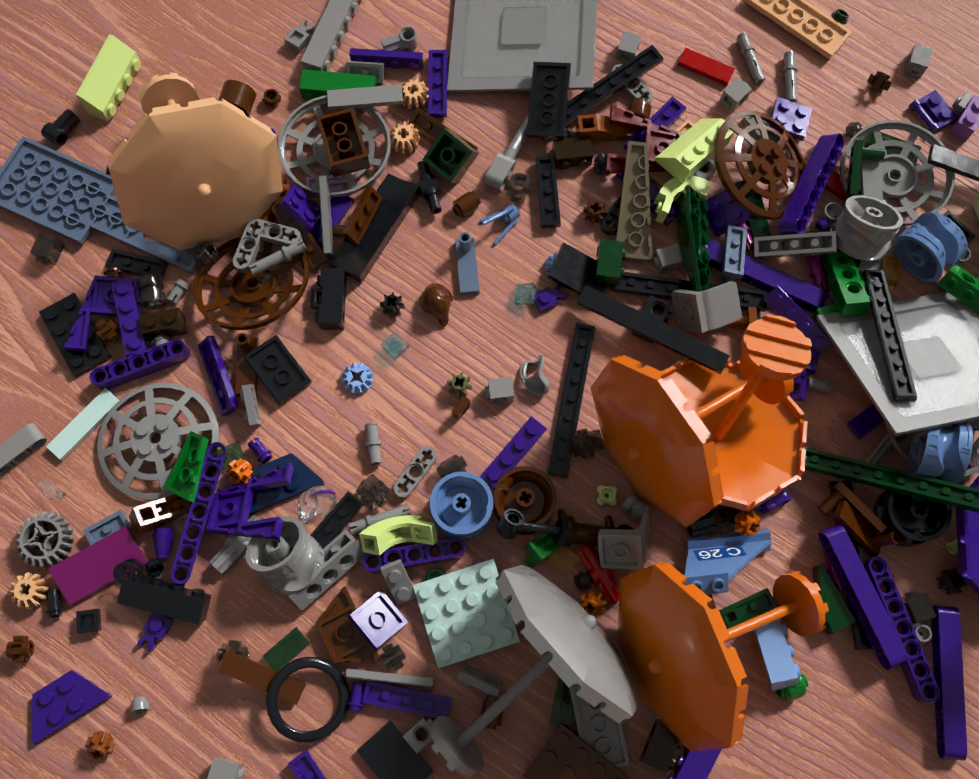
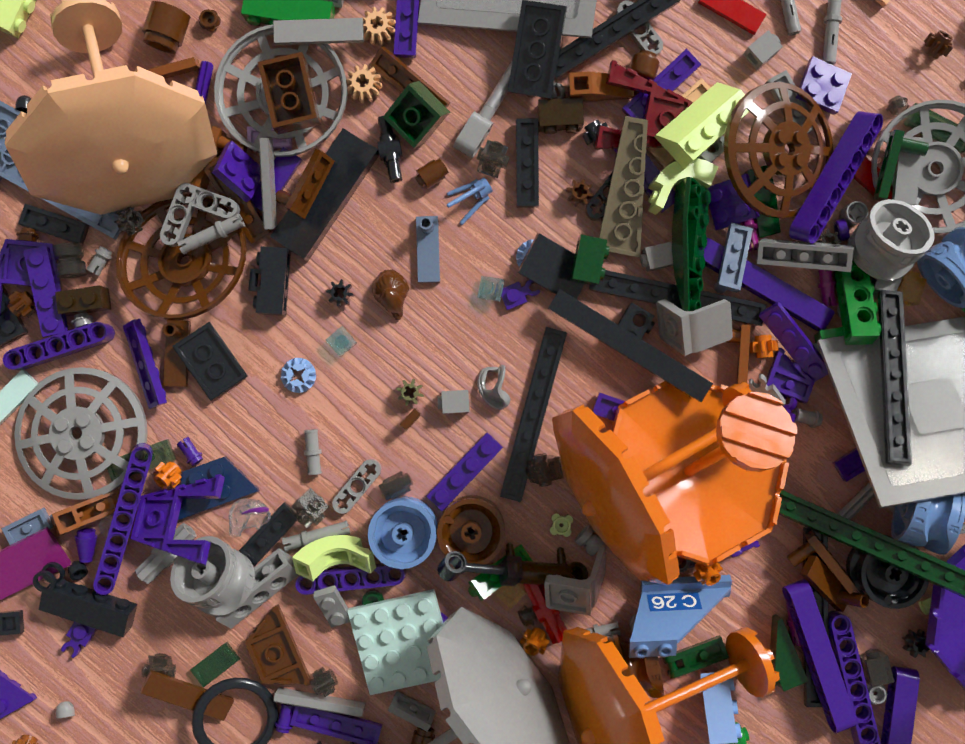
camera: 10 degrees right, 15 degrees up
(188, 467) = (110, 472): green wing -> none
(251, 413) = (181, 409): light grey plate -> none
(377, 619) = (309, 643): plate -> none

